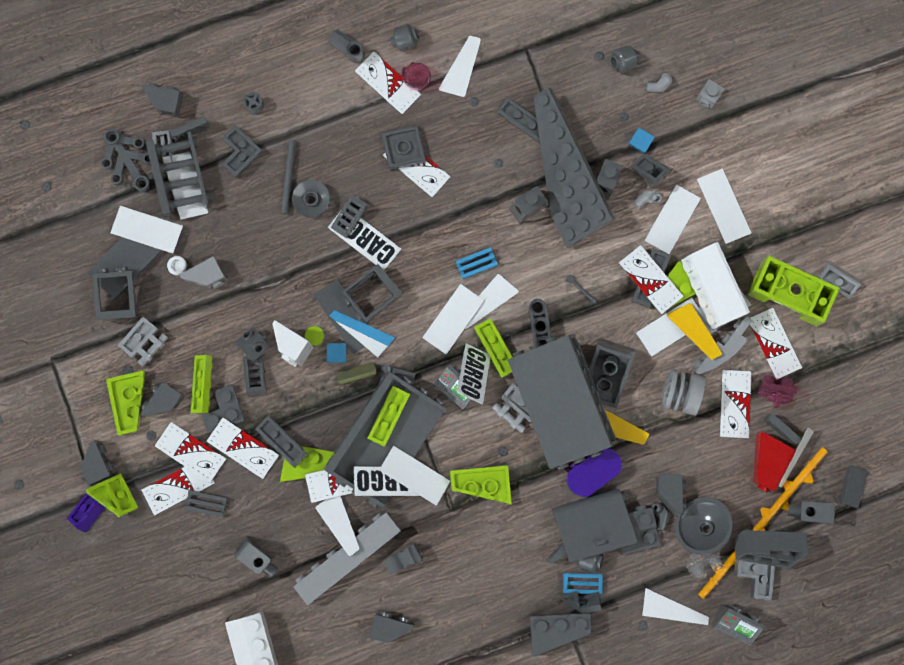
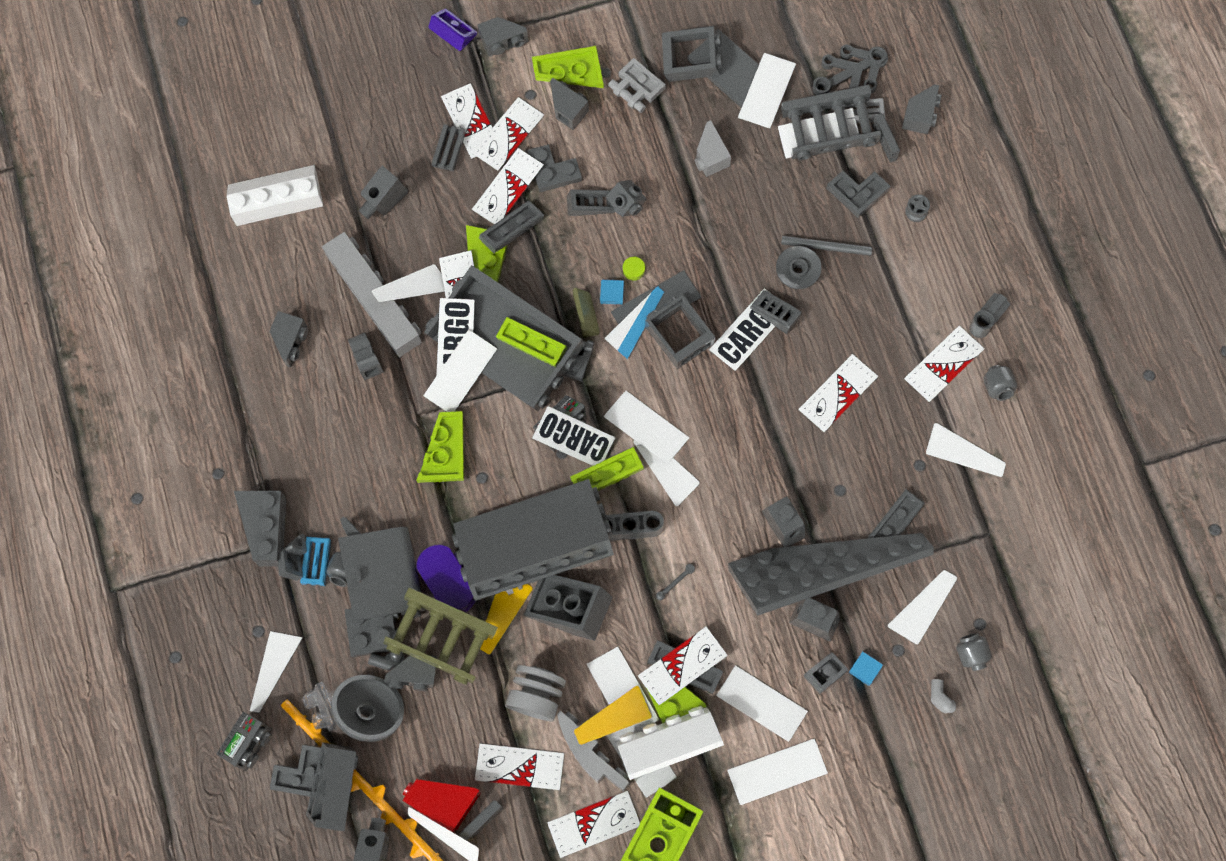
camera: 100 degrees right, 10 degrees down
(114, 495) = (464, 52): lime wing -> none
(177, 265) = (724, 123): white tile -> none
(201, 384) = (583, 145): lime plate -> none
(291, 345) = (621, 233): white slope -> none
(403, 147) = (860, 377): dark grey tile -> none
(416, 76) = (950, 393): clear pink hair -> none
(491, 257) = (706, 438): dark azure tile -> none
(513, 399) = (539, 487): light grey plate -> none
(596, 102) = (918, 615): none -> white sticker
(626, 473) = (438, 611): none -> olive fence
(647, 197) = (791, 671): light grey arm -> none
(710, 94) = (927, 762): light grey bracket -> none
(777, 393) = (533, 808): clear pink hips -> none

